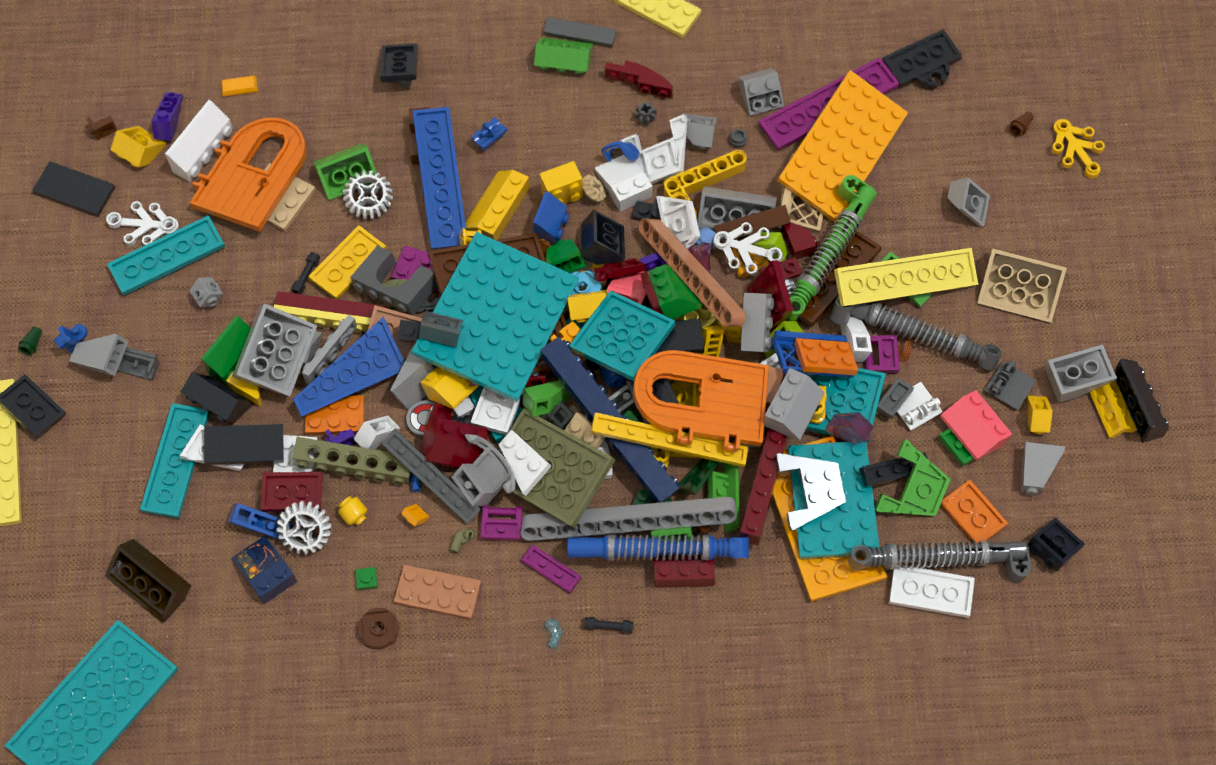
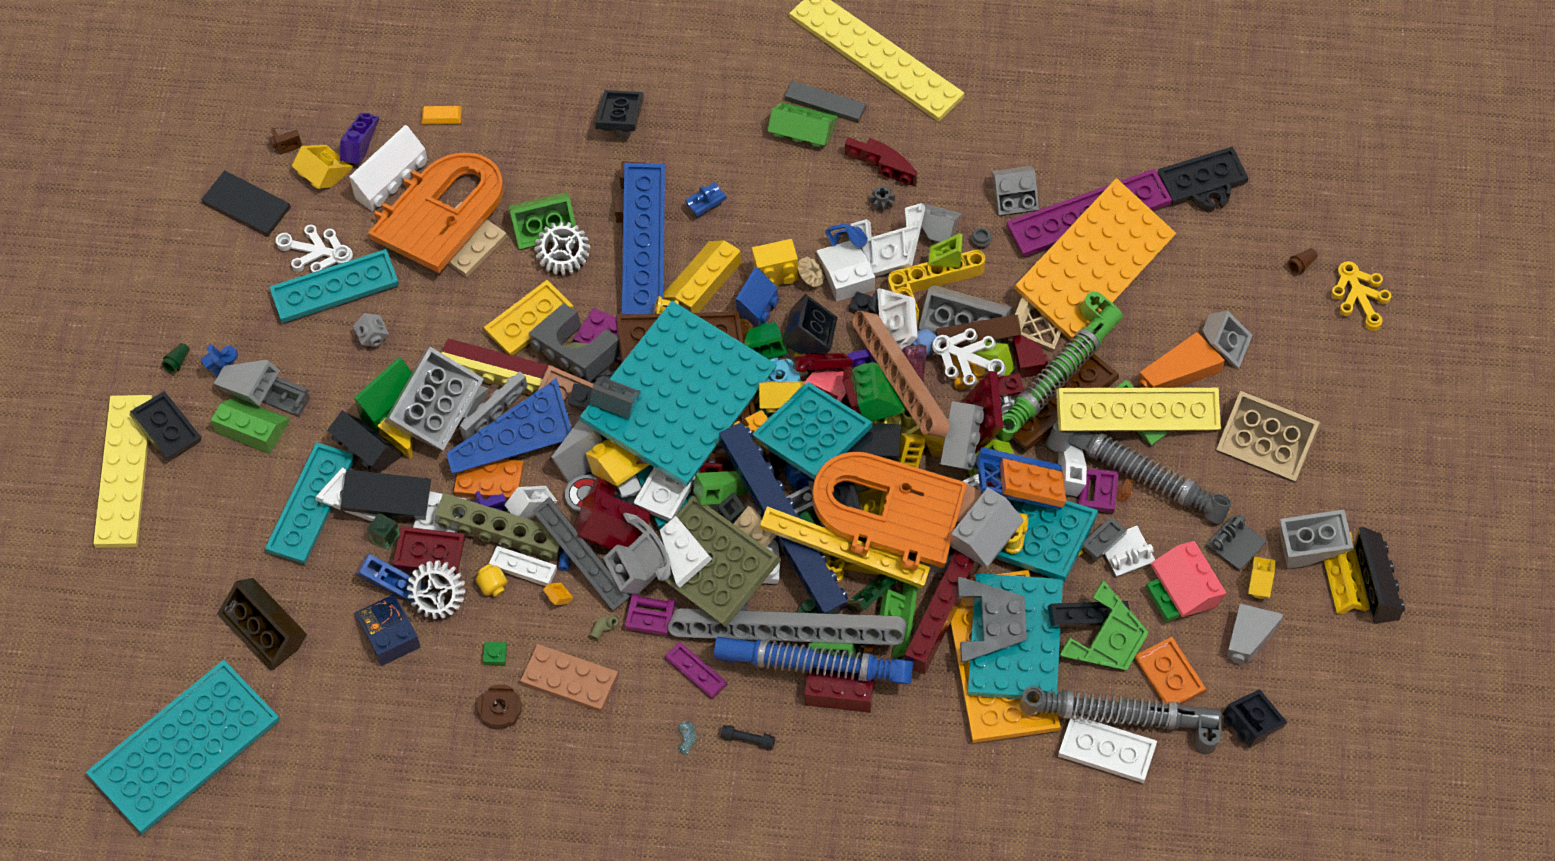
camera: 10 degrees right, 5 degrees down
(107, 393) = (249, 424): none -> bright green slope
(246, 478) = (383, 531): none -> clear green brick
(312, 260) = (491, 311): black bar -> none
(379, 493) = (523, 566): none -> white plate
(713, 156) = (947, 252): none -> lime slope
(850, 427) = (1046, 561): clear pink slope -> none
(934, 231) = (1182, 365): none -> orange slope

